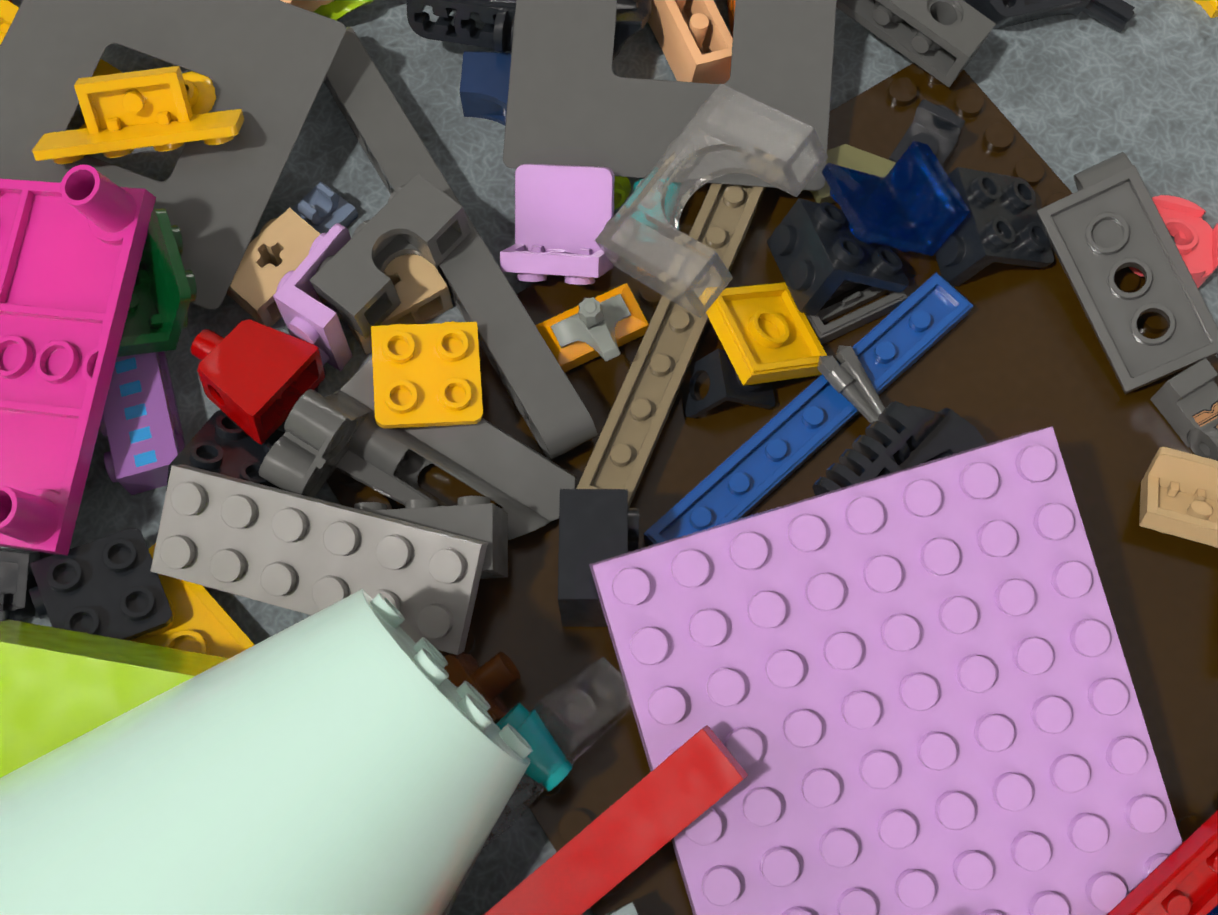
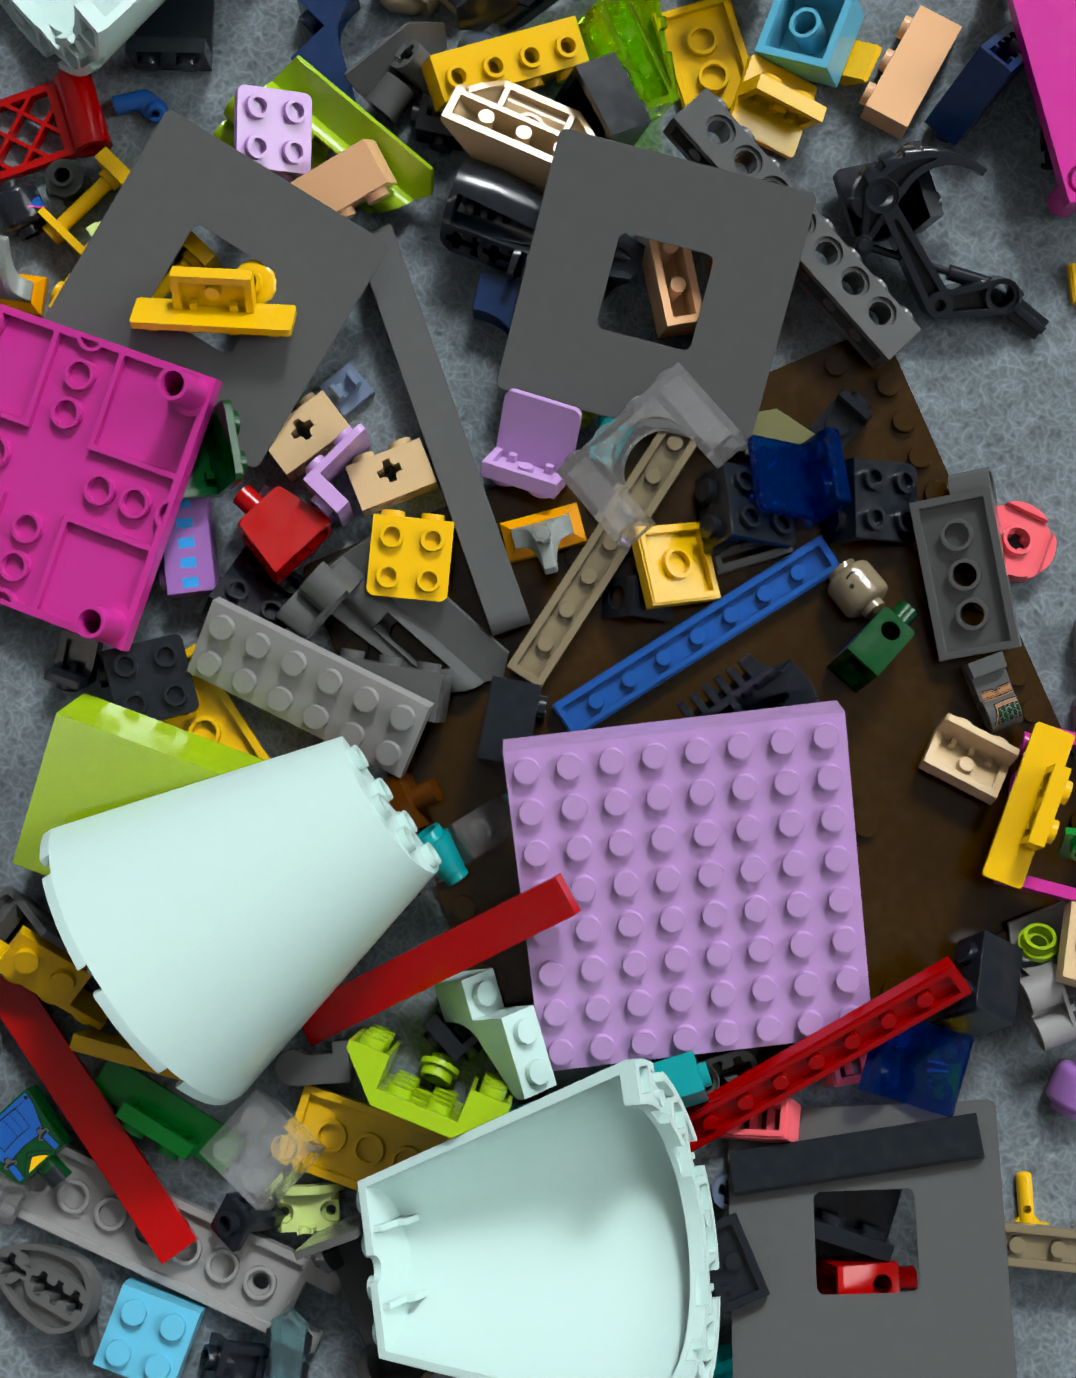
camera: 10 degrees right, 15 degrees up
(414, 221) = (418, 428): dark grey arch -> none
(851, 381) = (733, 619): dark grey piece -> none
(999, 323) = (857, 589): none -> dark tan head
(1048, 369) = (874, 646): none -> dark green torso

